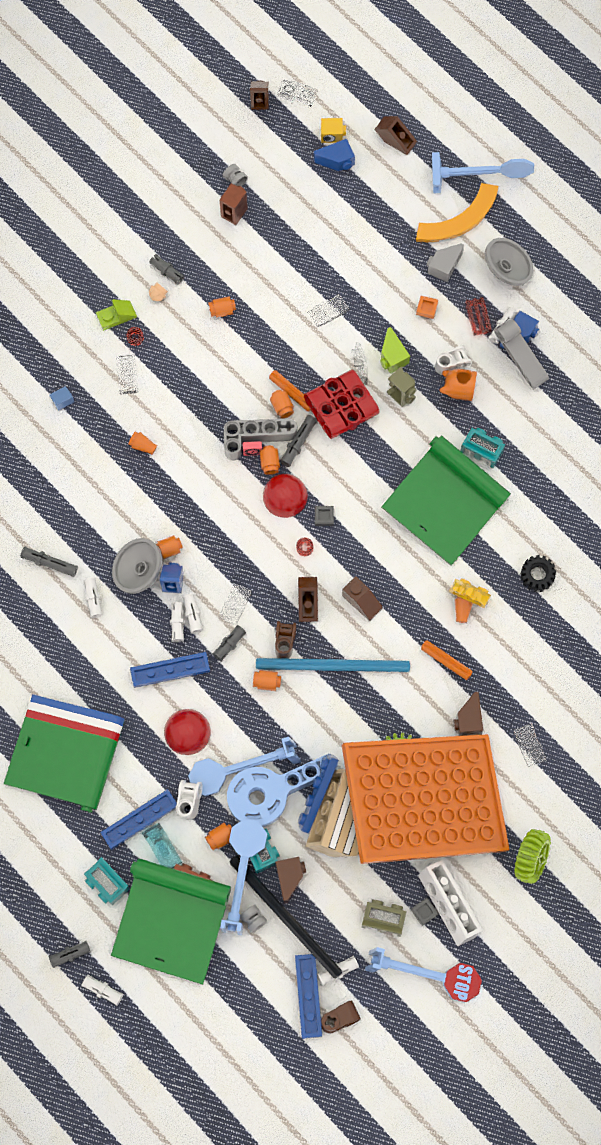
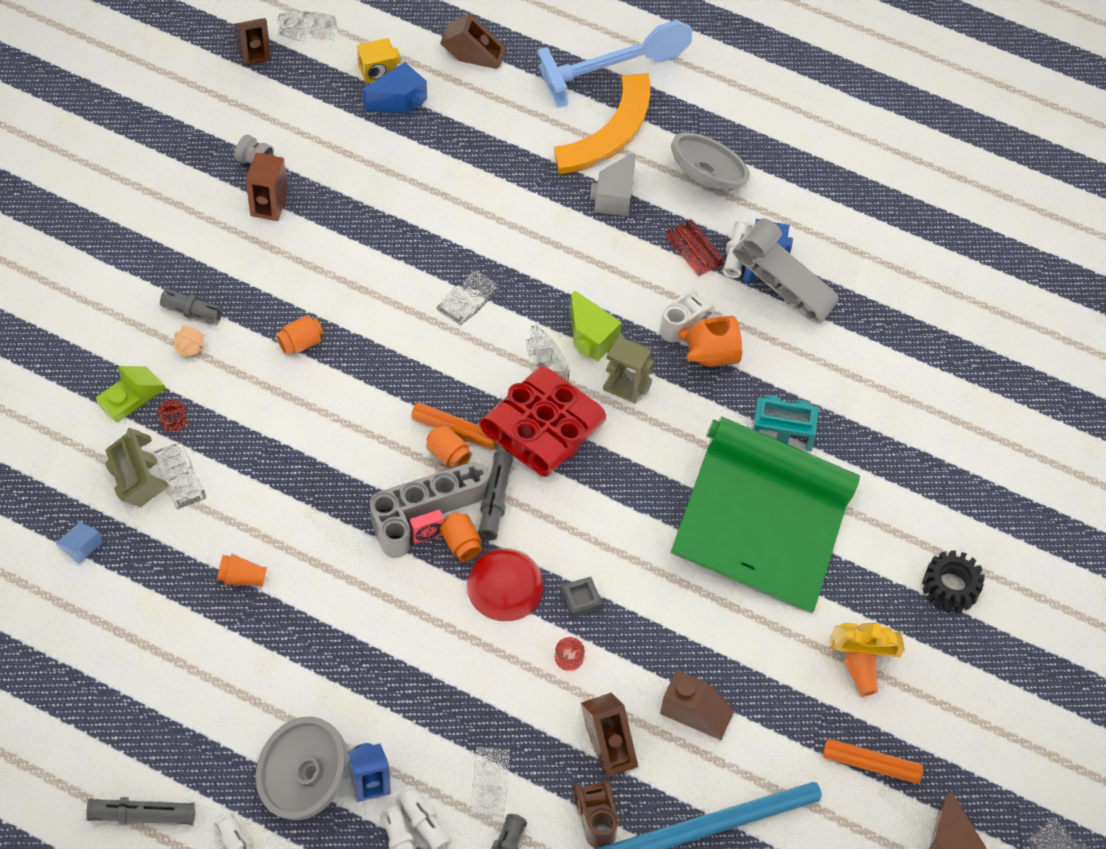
camera: 25 degrees left, 15 degrees down
(100, 364) = (130, 468): none -> olive window
(169, 546) = (348, 718): orange brick -> none
(427, 307) = (615, 253): orange plate -> none

